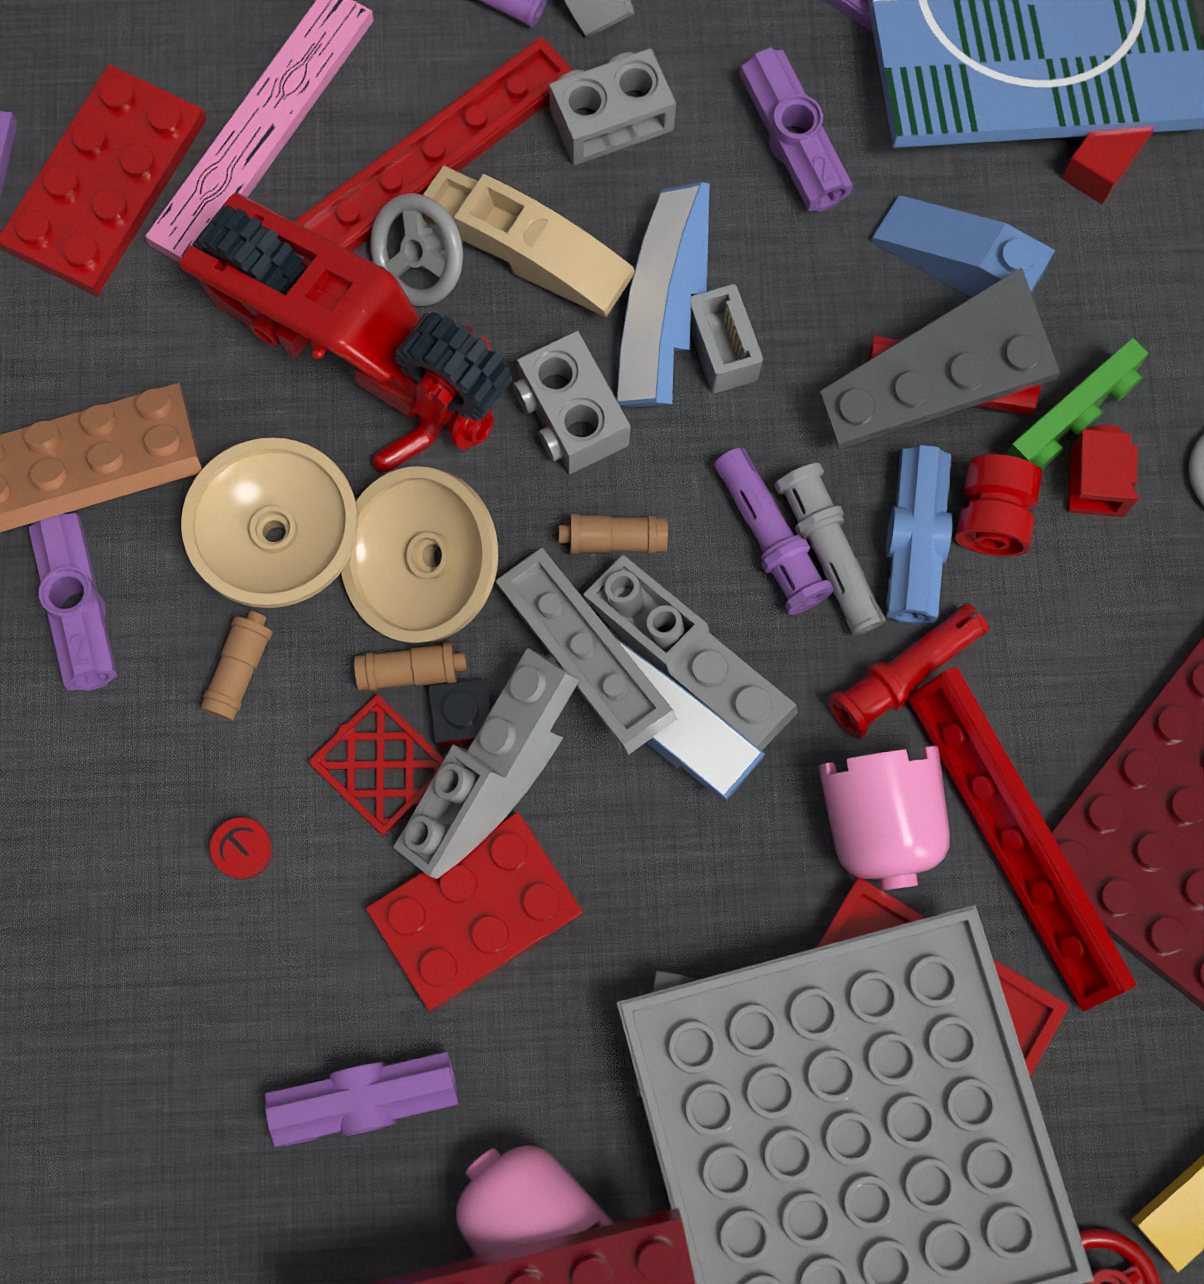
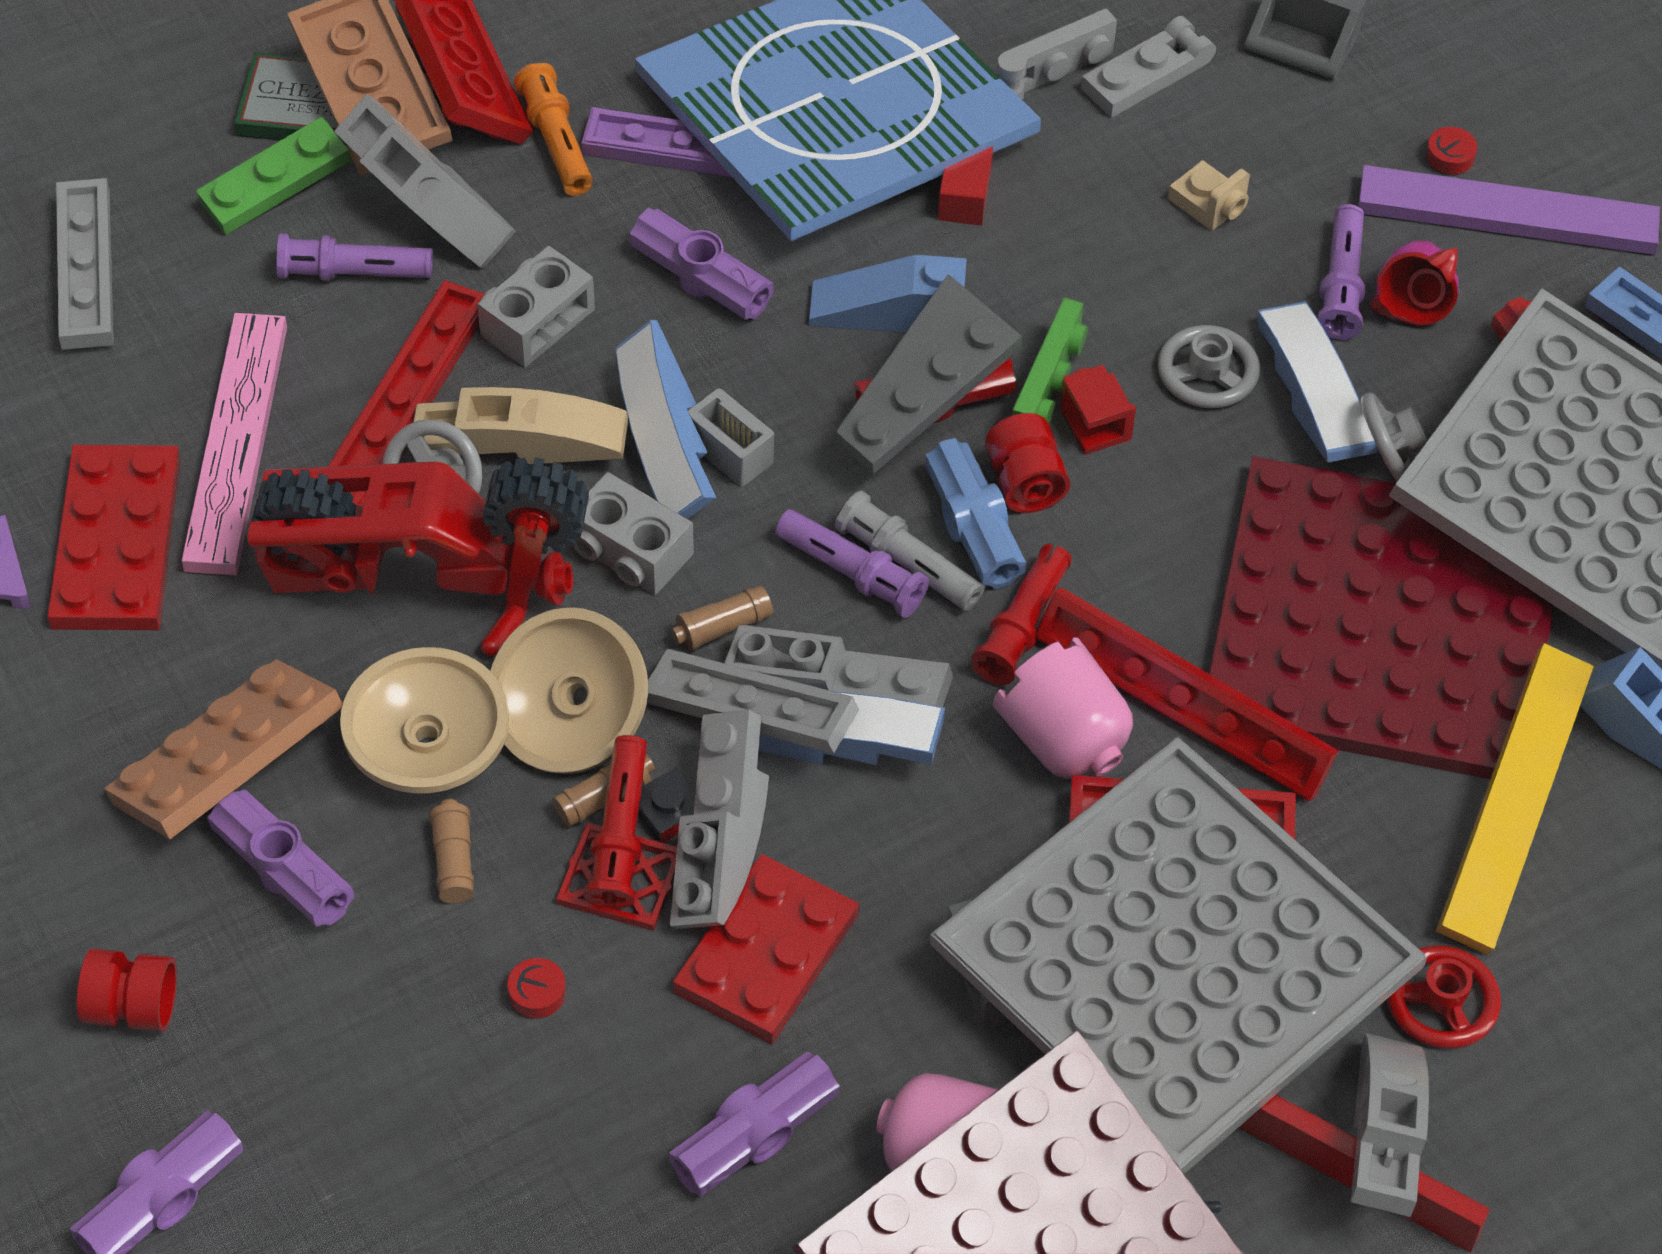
camera: 25 degrees left, 20 degrees down
(379, 745) = (617, 841): none -> red pin

